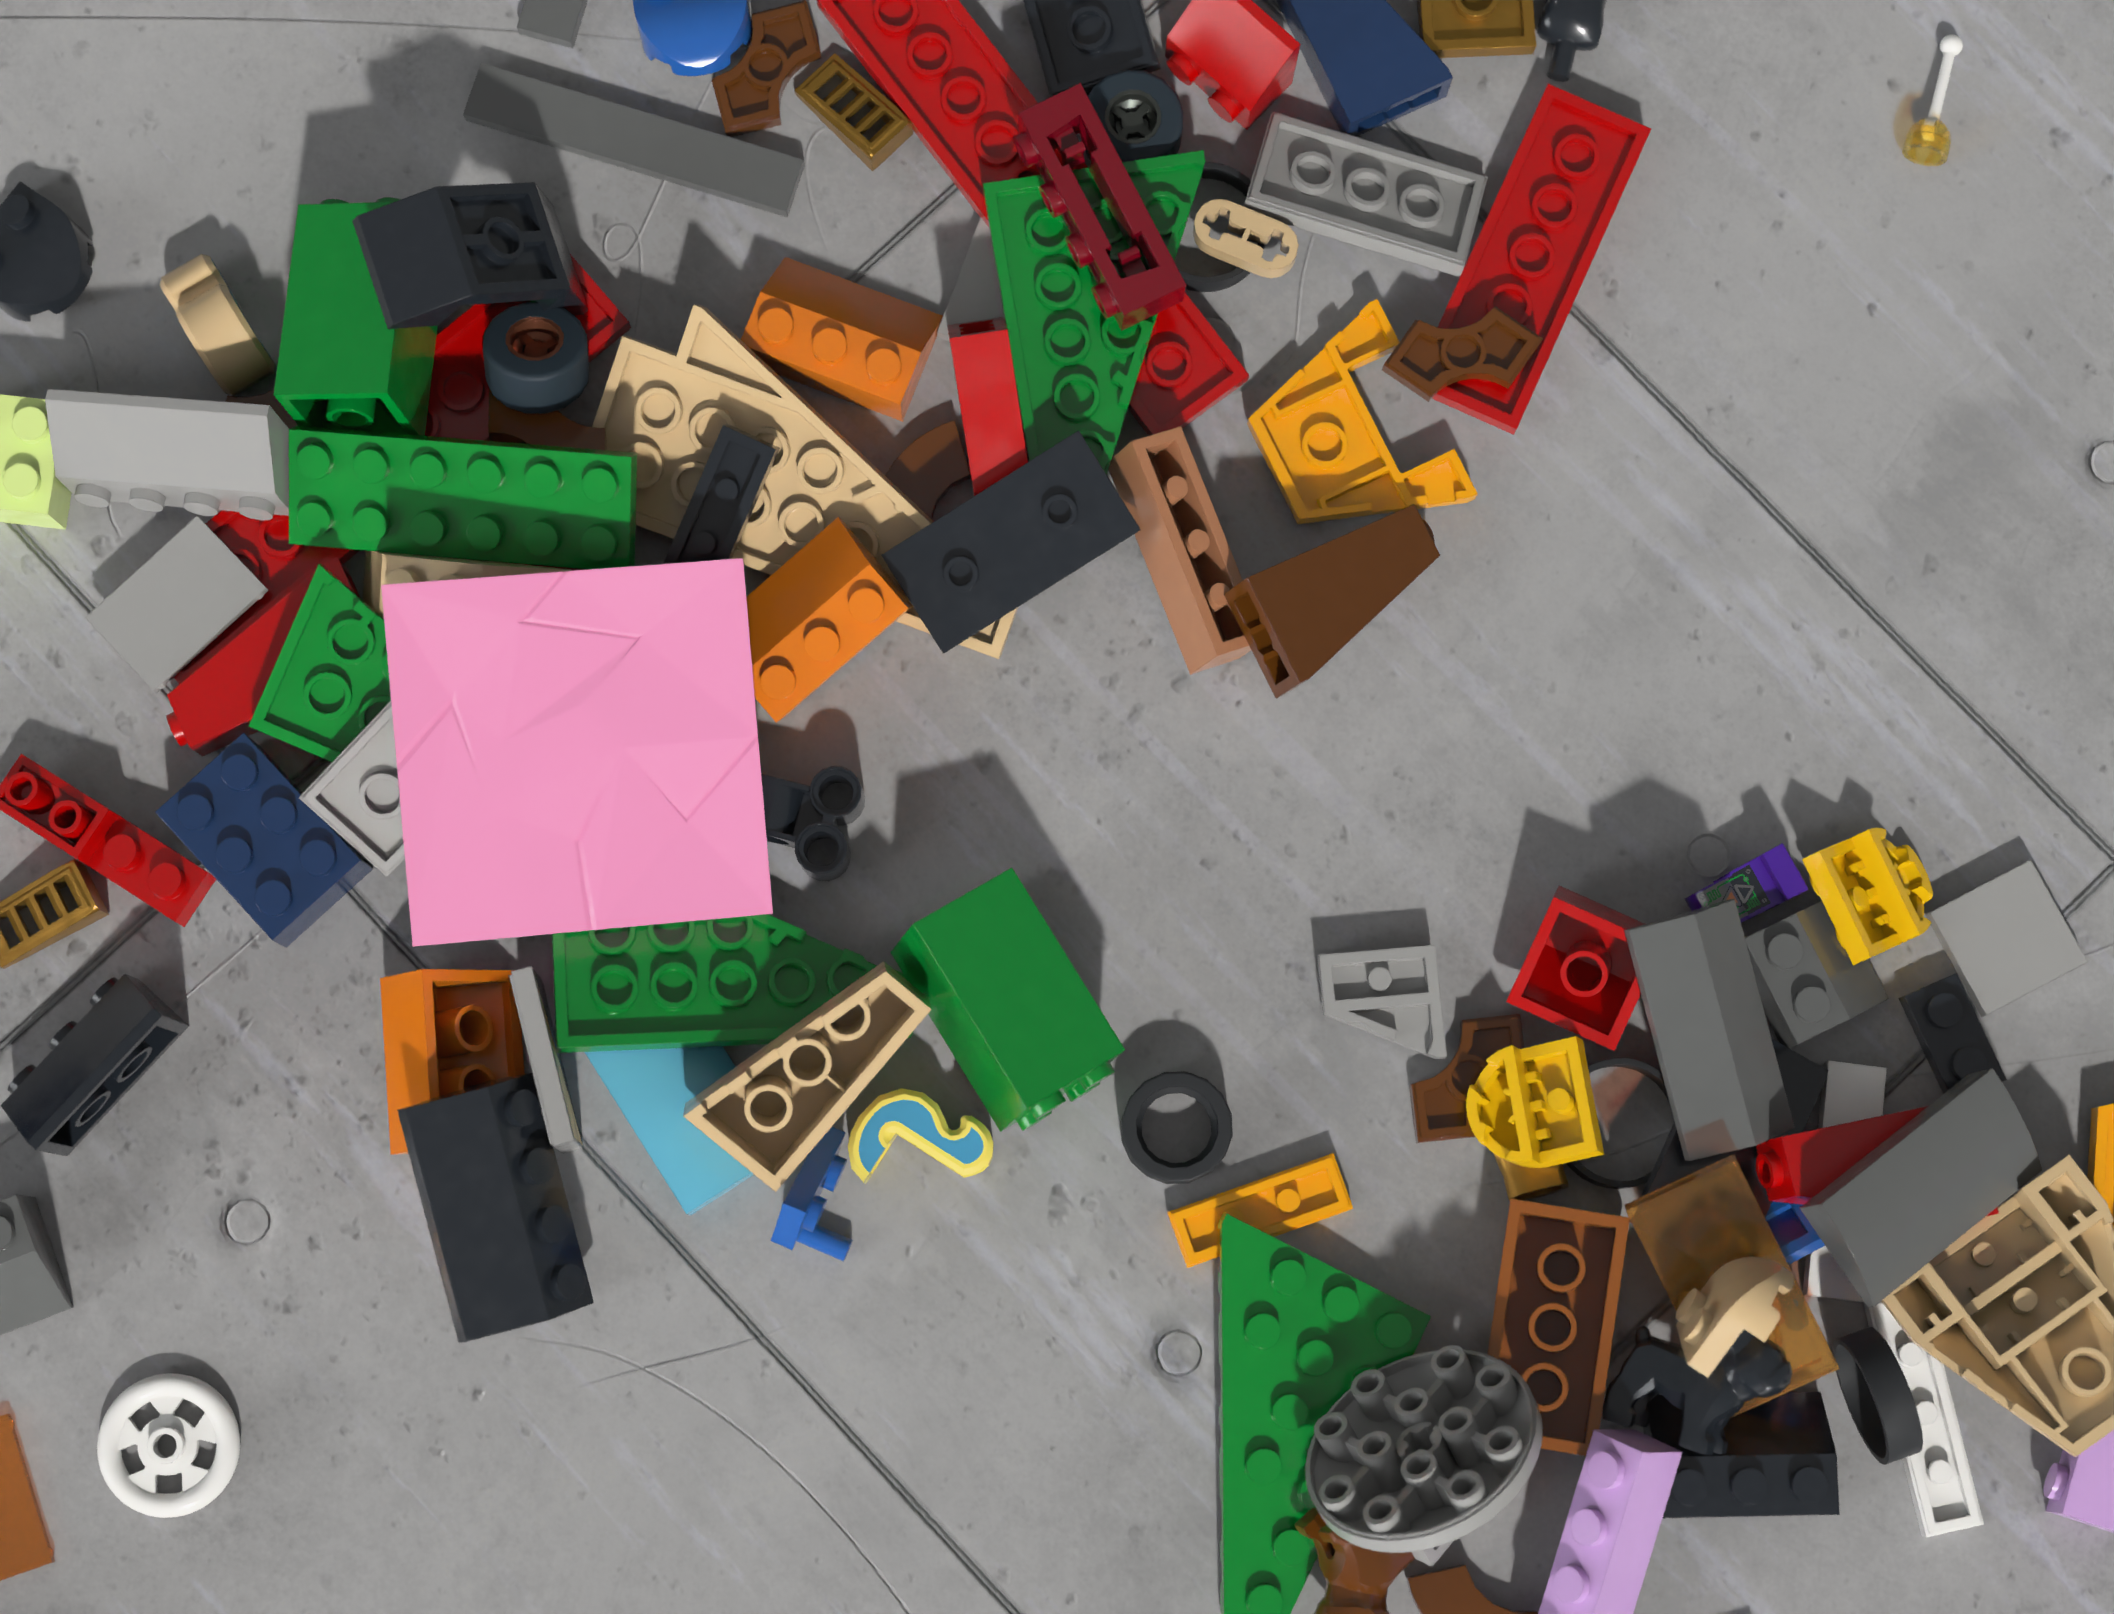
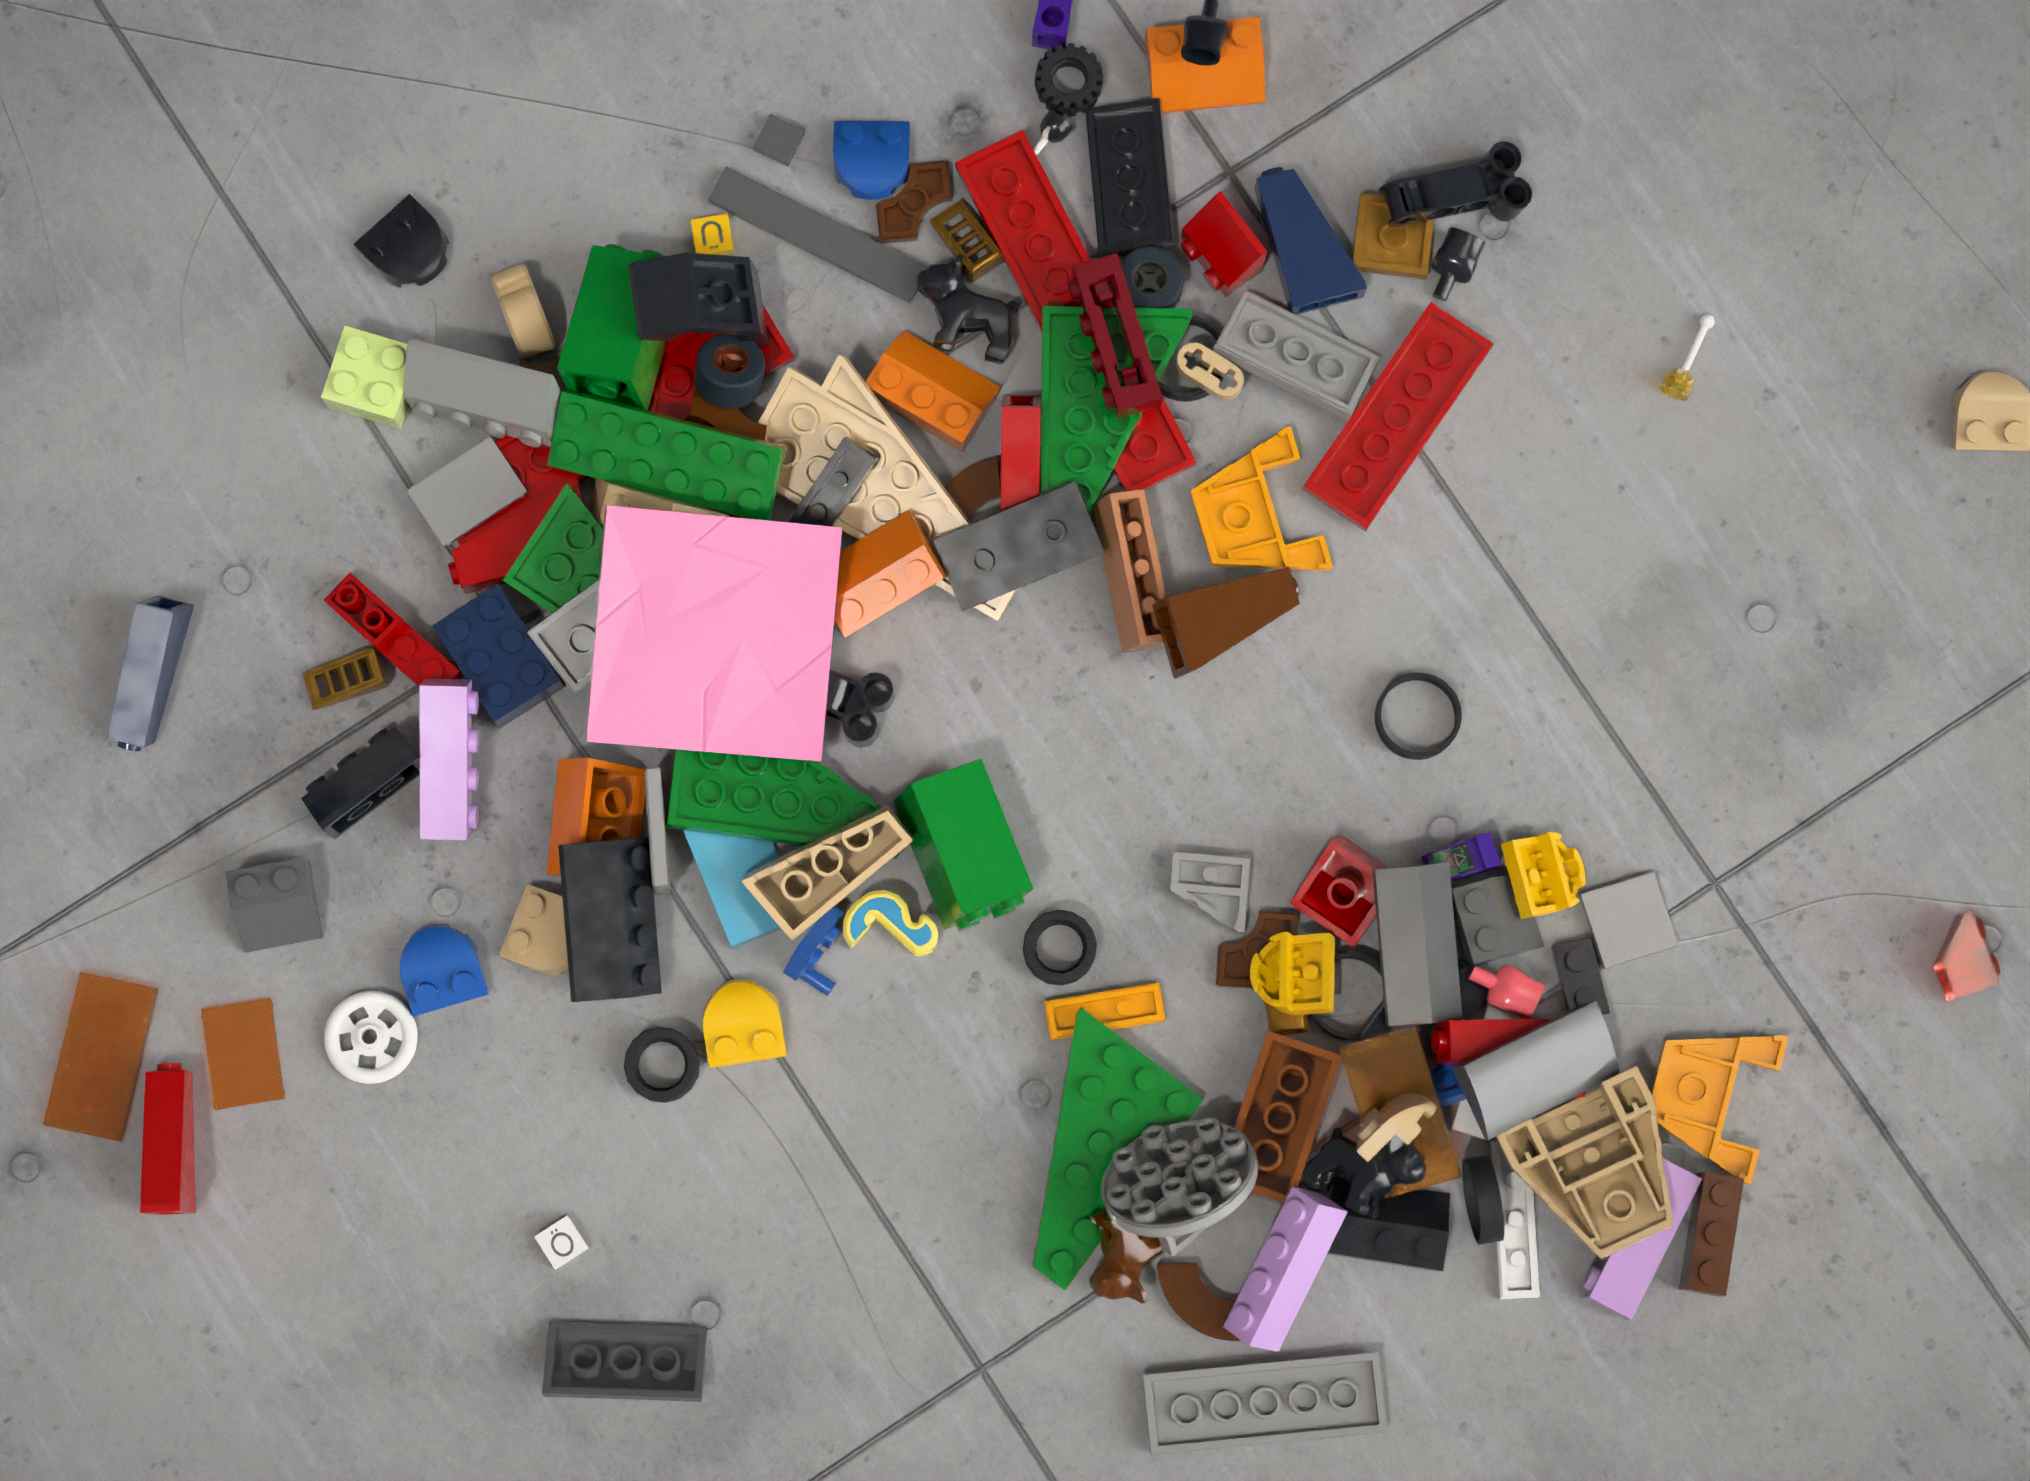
camera: 10 degrees right, 0 degrees up
(211, 1008) = (447, 759): none -> lavender brick
(256, 1324) = (440, 969): none -> blue slope
(391, 1245) = (537, 933): none -> tan slope
(478, 161) = (712, 235): none -> yellow tile
(568, 1410) = (653, 1036): none -> black tyre
(724, 1327) = (742, 1024): none -> yellow slope
(870, 212) = (966, 311): none -> black animal
(1437, 357) = (1323, 472): reddish brown tile -> none
(1675, 644) = (1430, 679): none -> black tyre
(1856, 1073) = (1510, 989): none -> coral piece

